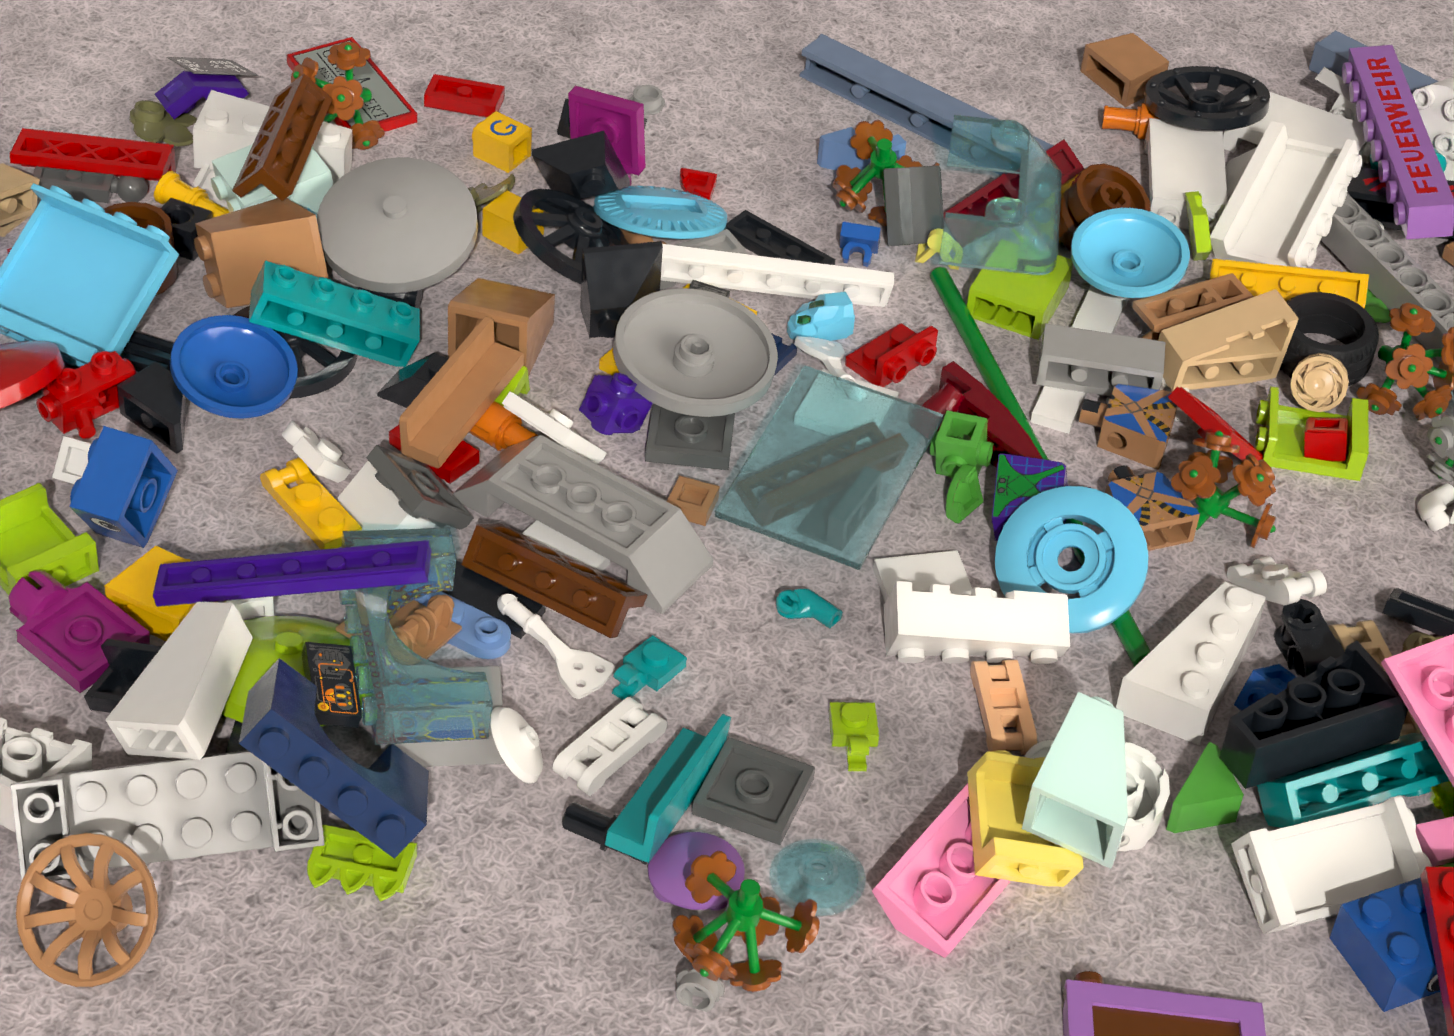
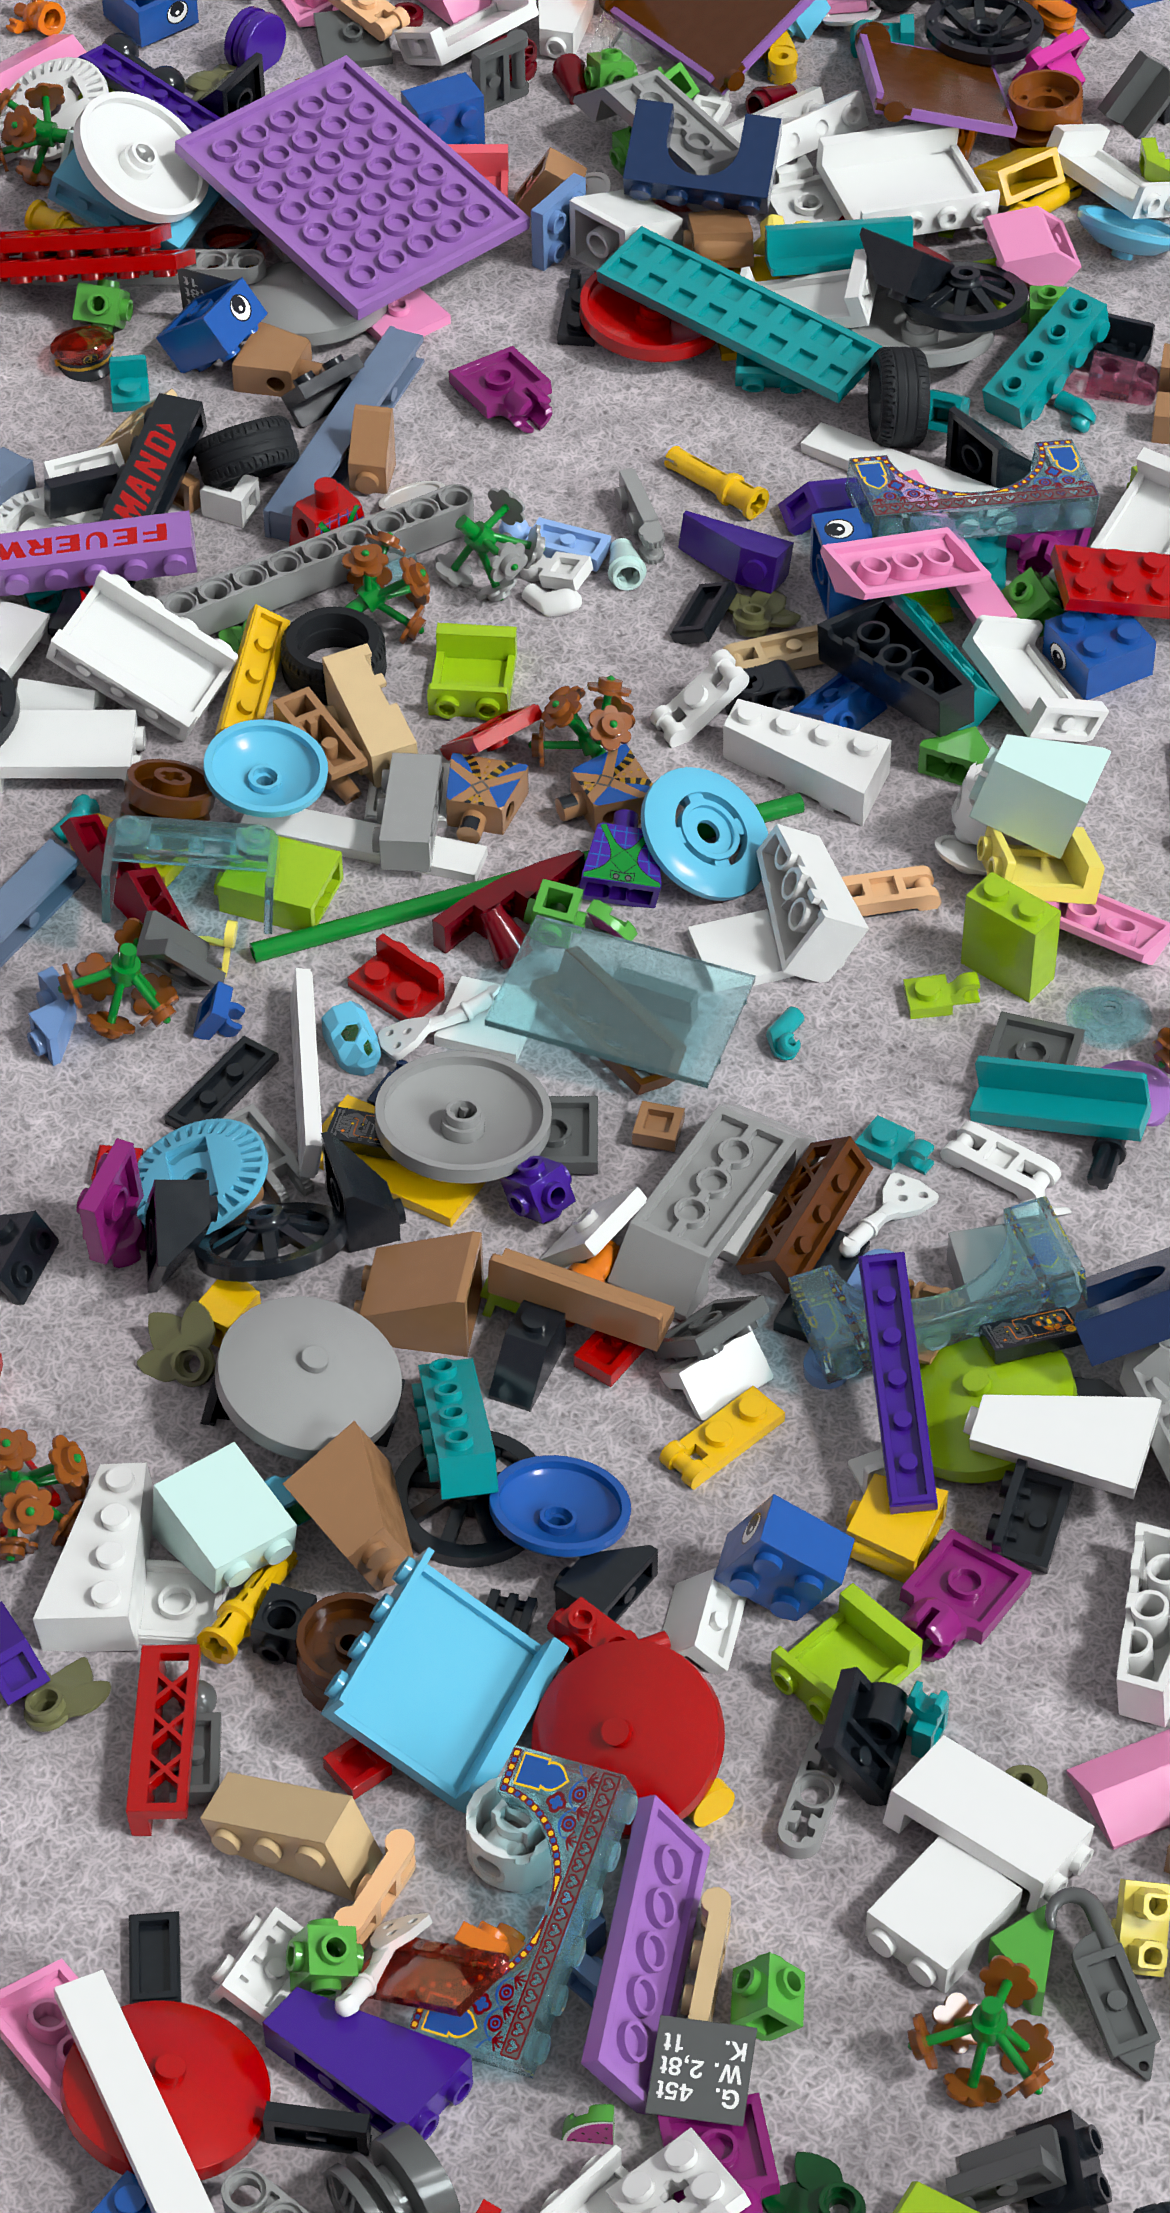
camera: 90 degrees left, 5 degrees up
(284, 139) = (200, 1467): reddish brown fence -> none
(320, 456) = (658, 1431): white plate -> none
(502, 141) = (70, 1341): yellow brick -> none
(899, 764) = (1010, 936): none -> lime brick
(1198, 226) = (172, 736): lime tile -> none
(1319, 382) = (409, 657): tan wheel -> none
(1326, 439) = (479, 662): red slope -> none

